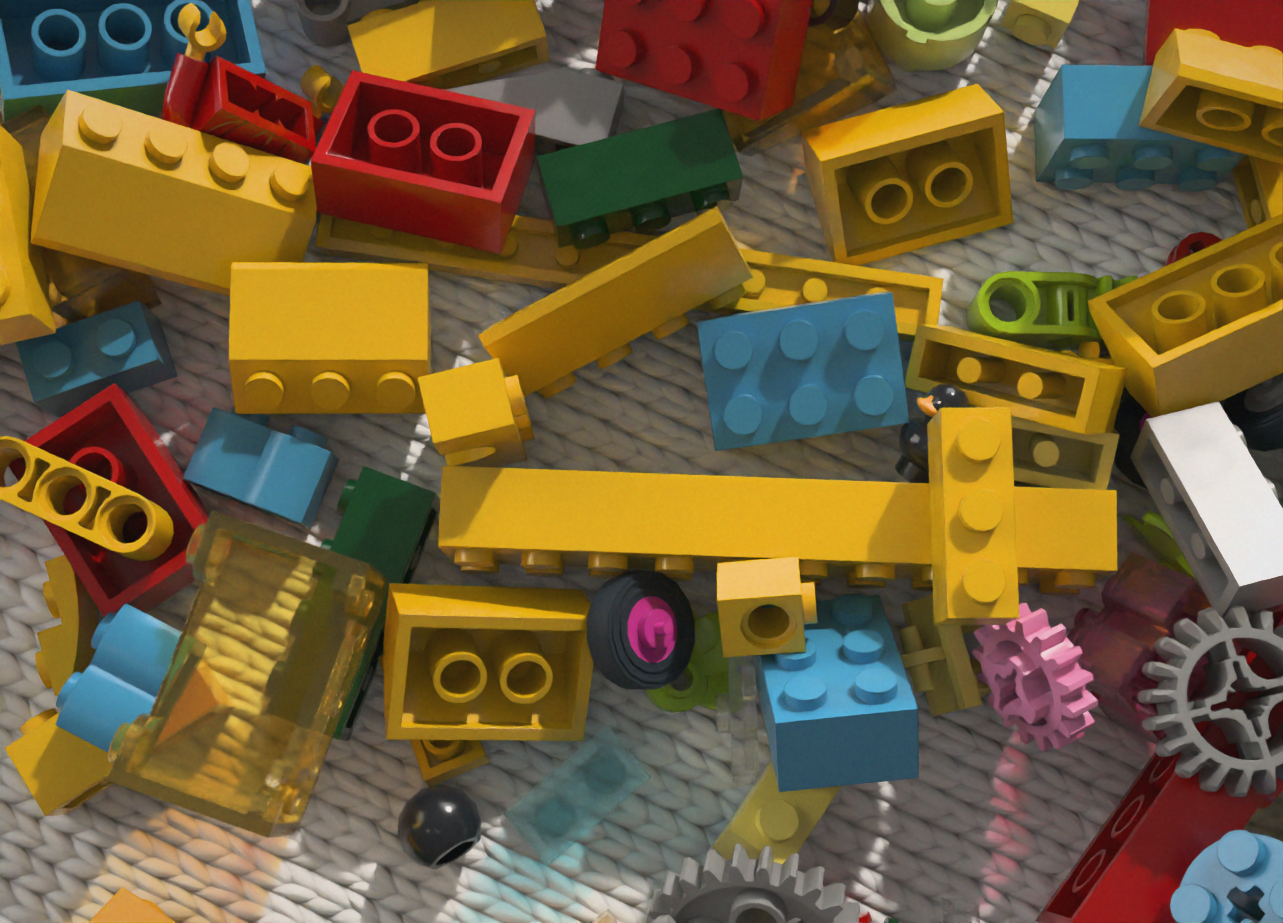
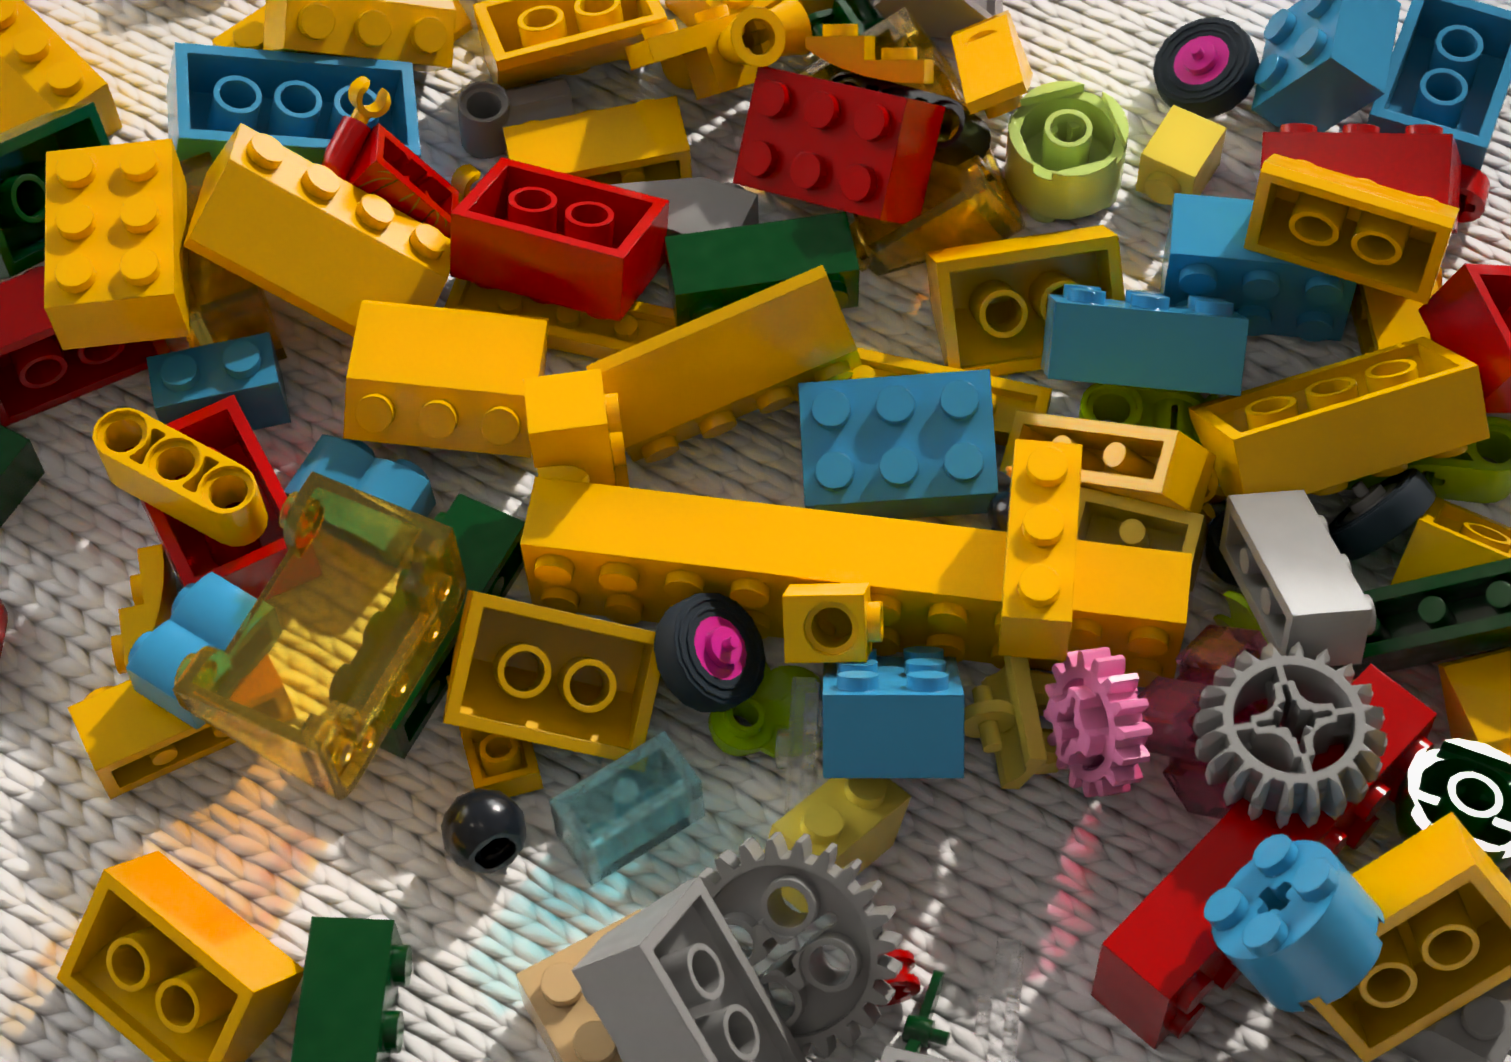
camera: 10 degrees right, 20 degrees down
(1040, 234) = (1144, 341): none -> dark azure brick

